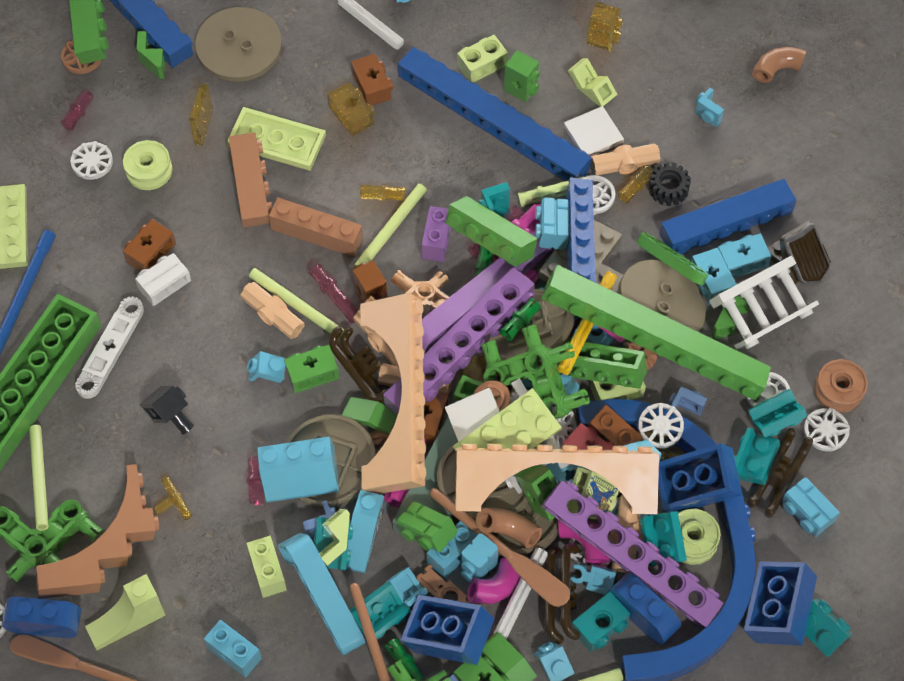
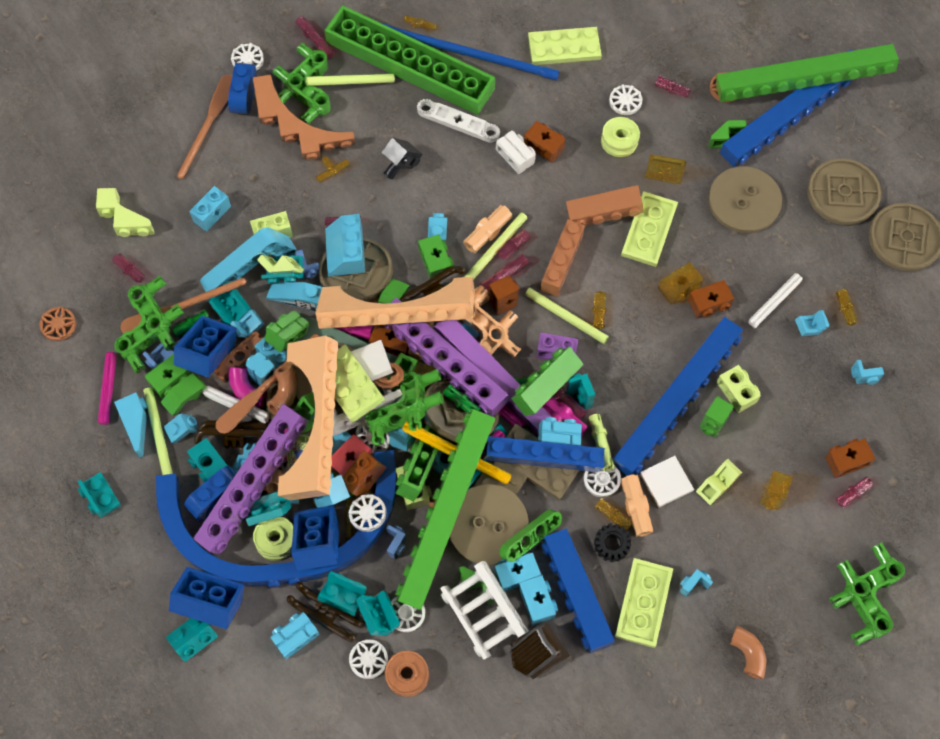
camera: 90 degrees right, 5 degrees up
(134, 610) = (242, 142): yellowish green arch -> none
(293, 282) = (513, 244): none -> clear pink axle
(734, 156) = (644, 603): none -> yellowish green plate

